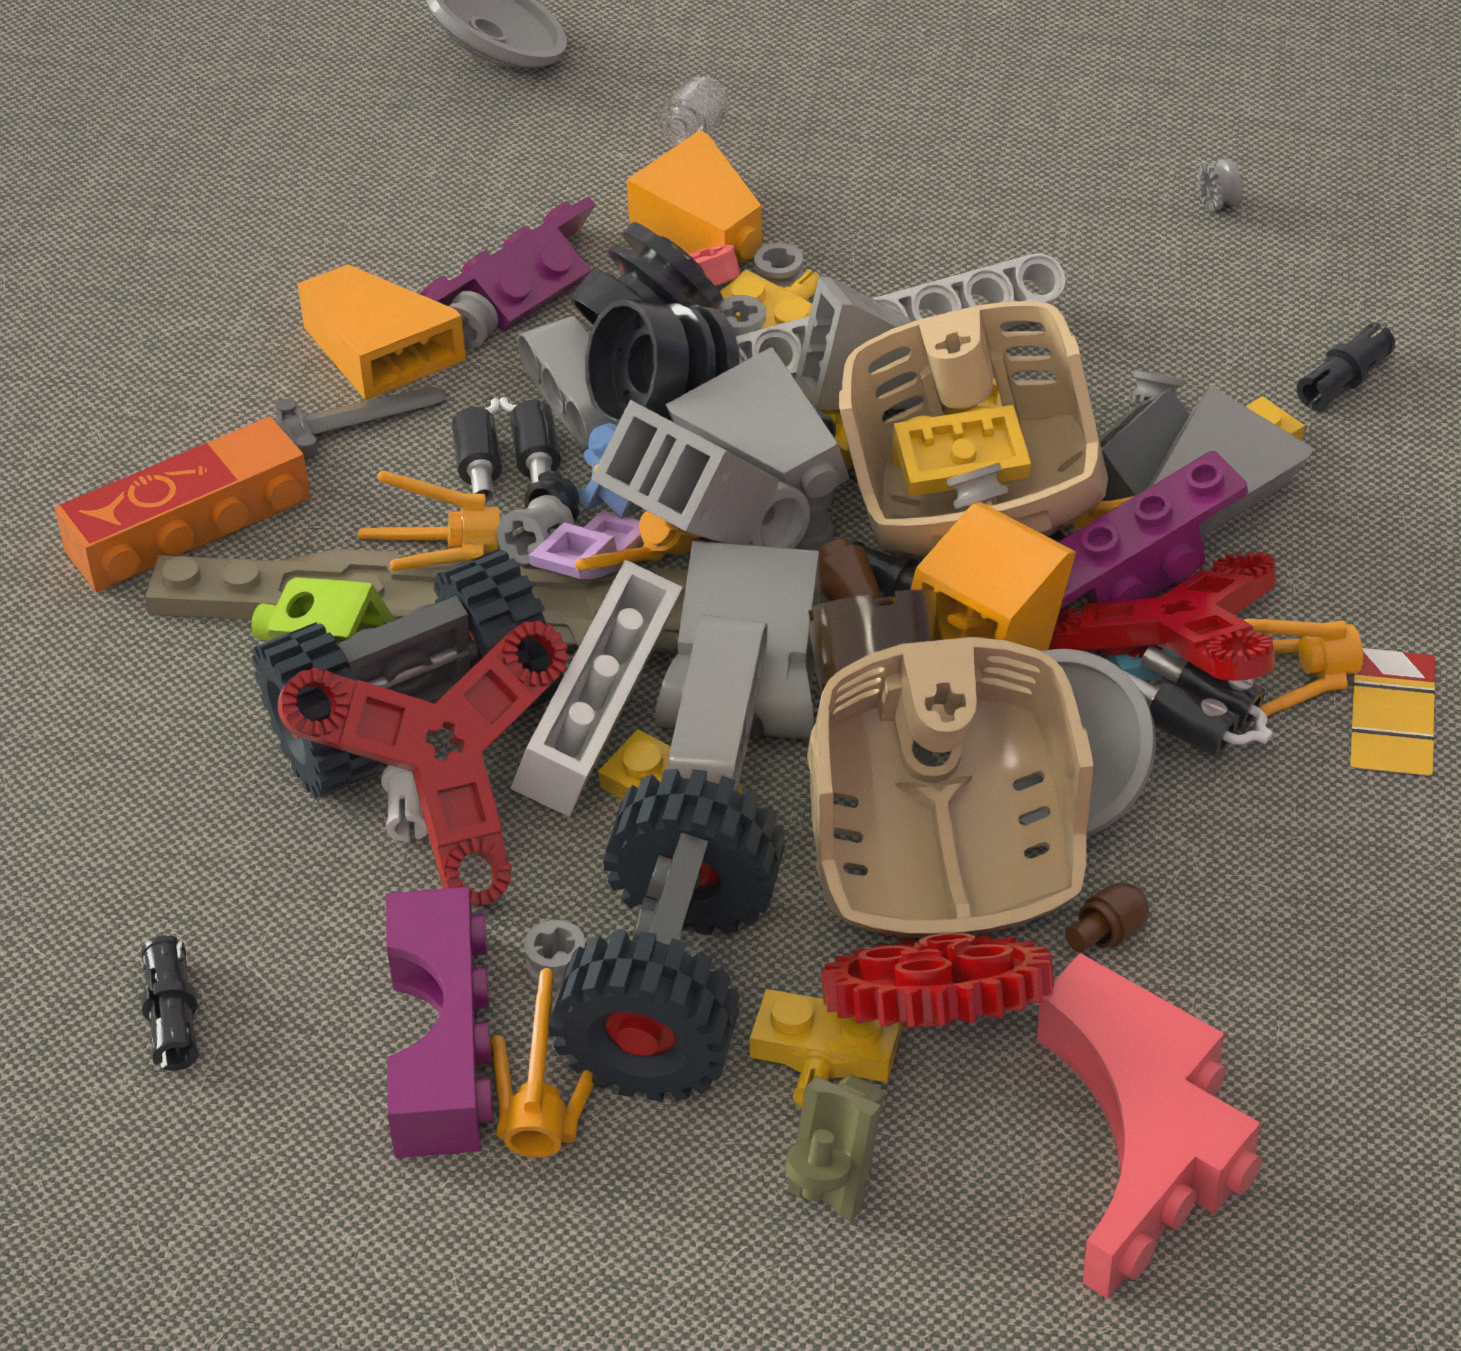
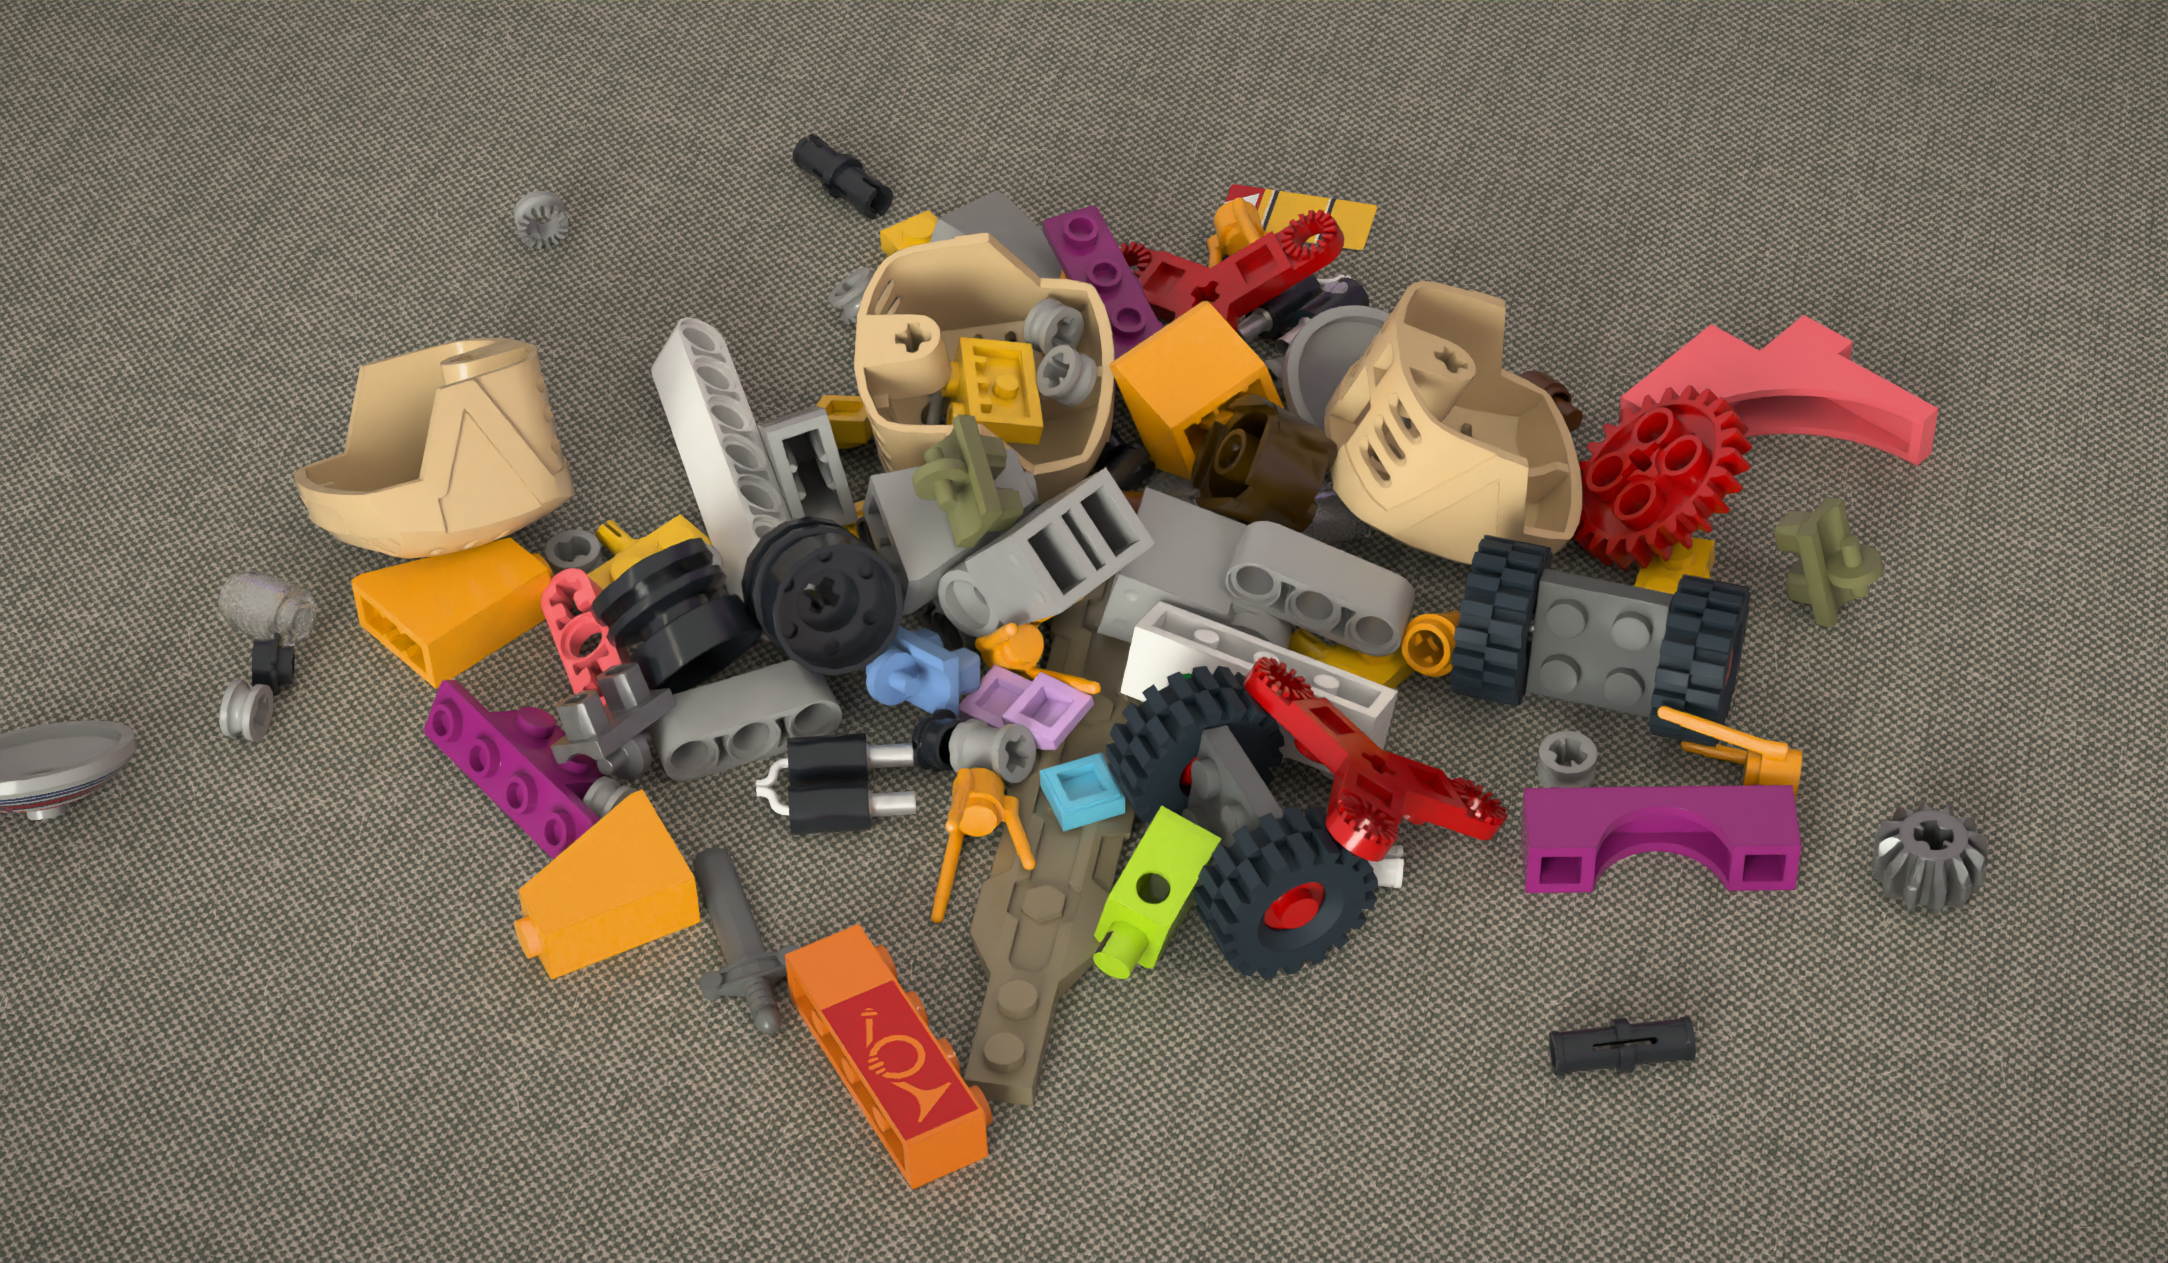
camera: 85 degrees left, 0 degrees up
(404, 1255) = (1929, 857): none -> flat silver gear
(521, 291) = (617, 731): none -> flat silver hips
(579, 104) = (246, 710): none -> light grey bush
(632, 124) = (272, 663): none -> black plate
(755, 393) = (962, 479): none -> olive hips
(808, 145) = (442, 452): none -> tan piece
(1058, 458) = (1053, 324): none -> light grey bush

